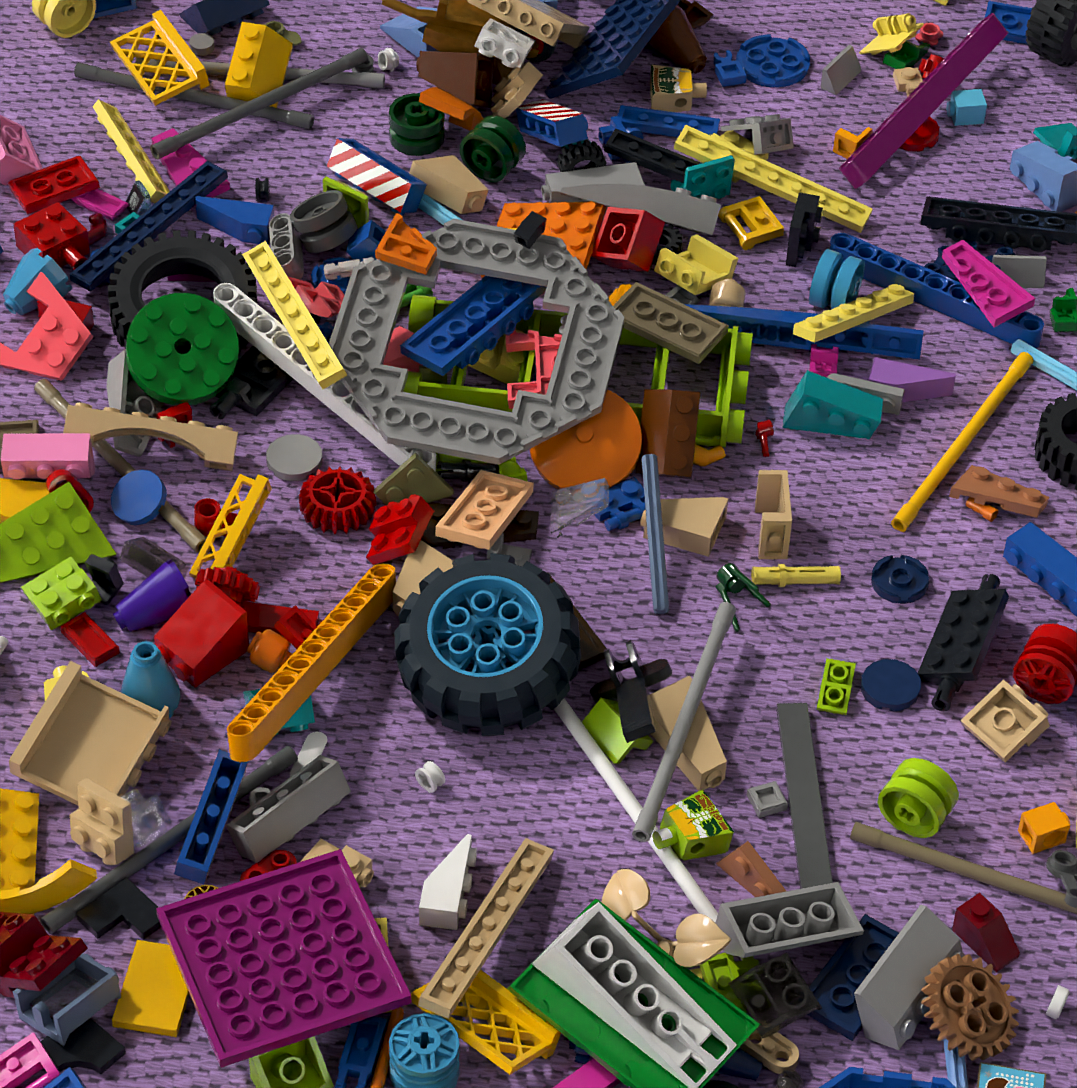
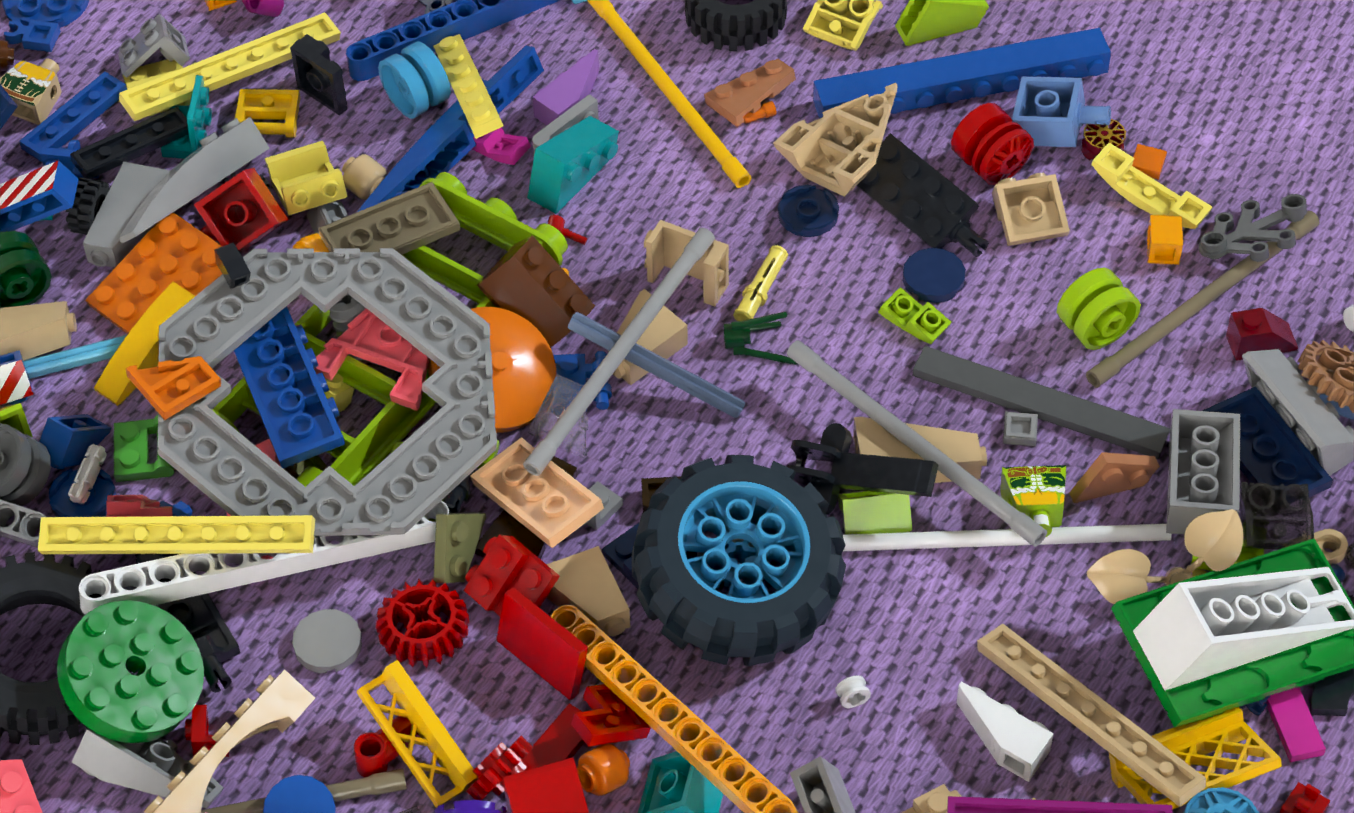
camera: 60 degrees left, 5 degrees up
(354, 562) = (542, 643): none -> red tile
(761, 499) = (547, 447): none -> light grey piece
(972, 561) = (841, 144): none -> tan wedge

